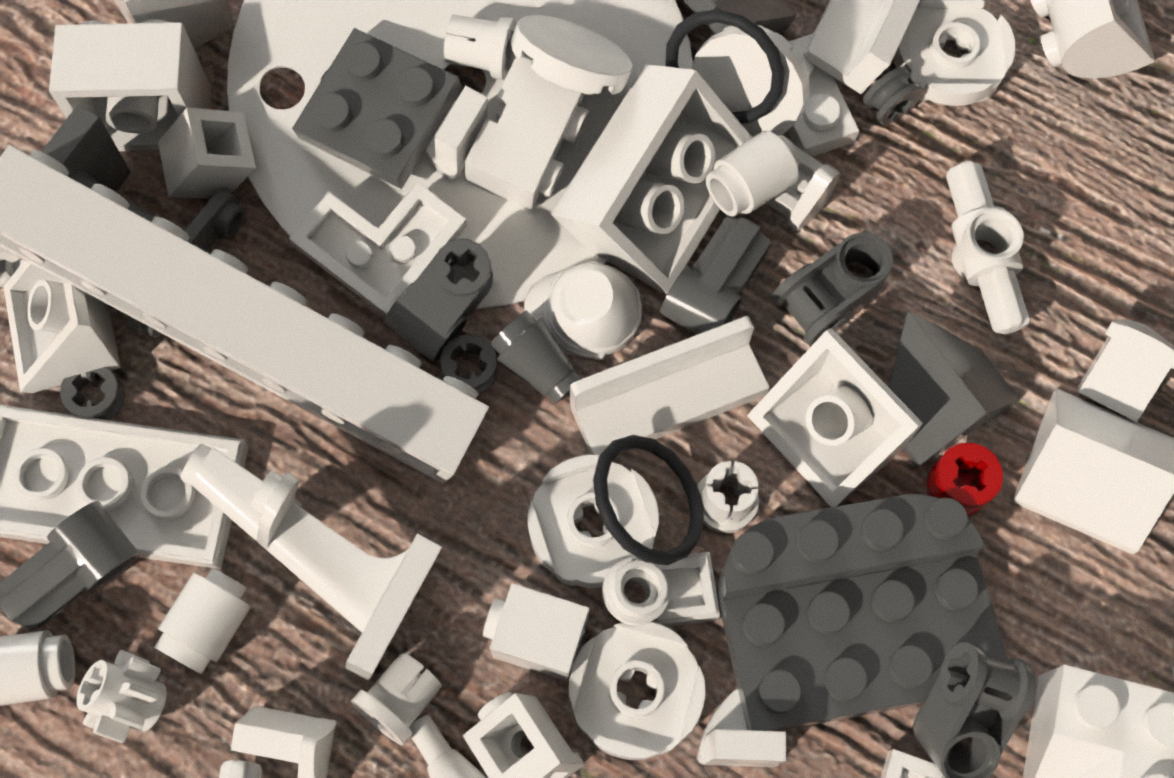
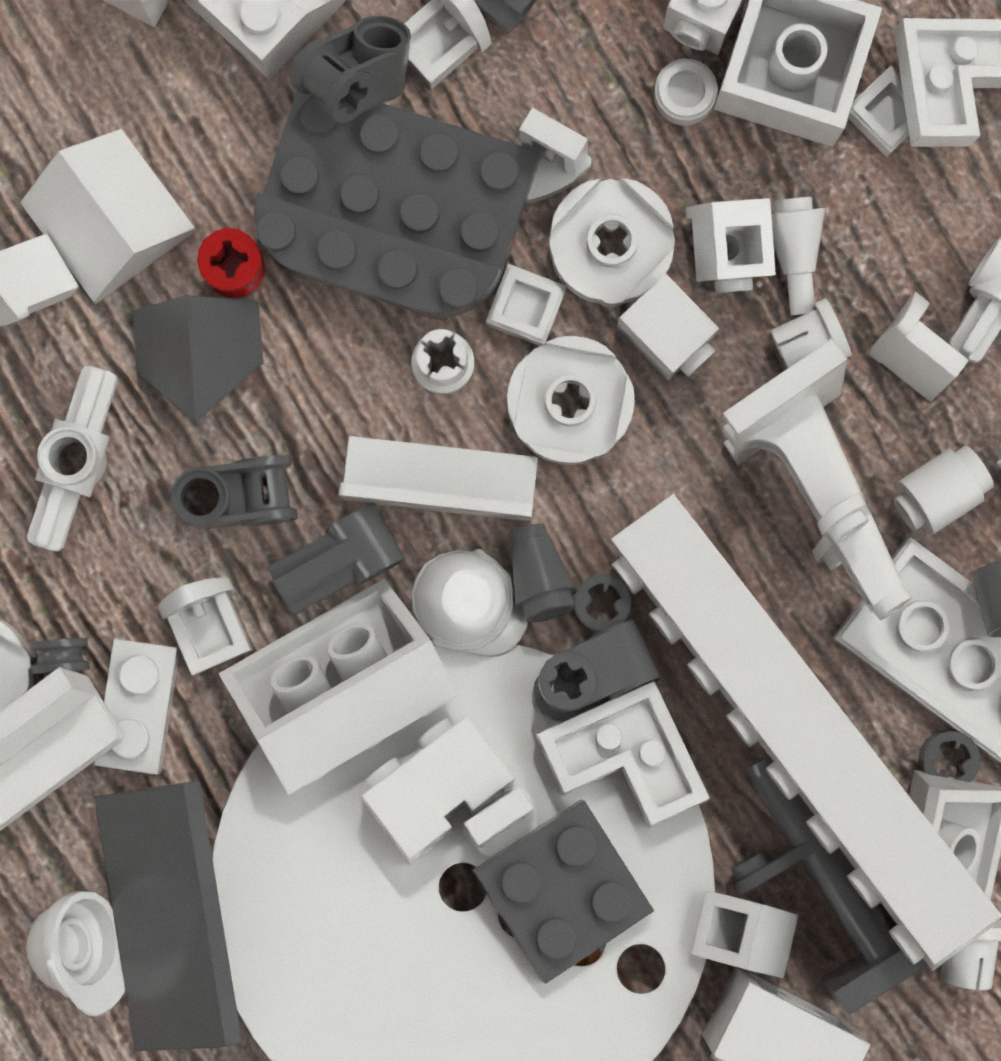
camera: 150 degrees left, 15 degrees up
(480, 44) = (432, 902): white bush -> none
(571, 54) = (355, 836): white tile -> none
(610, 518) = (558, 402): black piece -> none
(652, 580) = (565, 297): white plate -> none
(742, 77) = (196, 729): white tile -> none
(750, 29) = (192, 765): black piece -> none
(753, 173) = (247, 635): white brick -> none
(834, 419) = (315, 372): white slope -> none

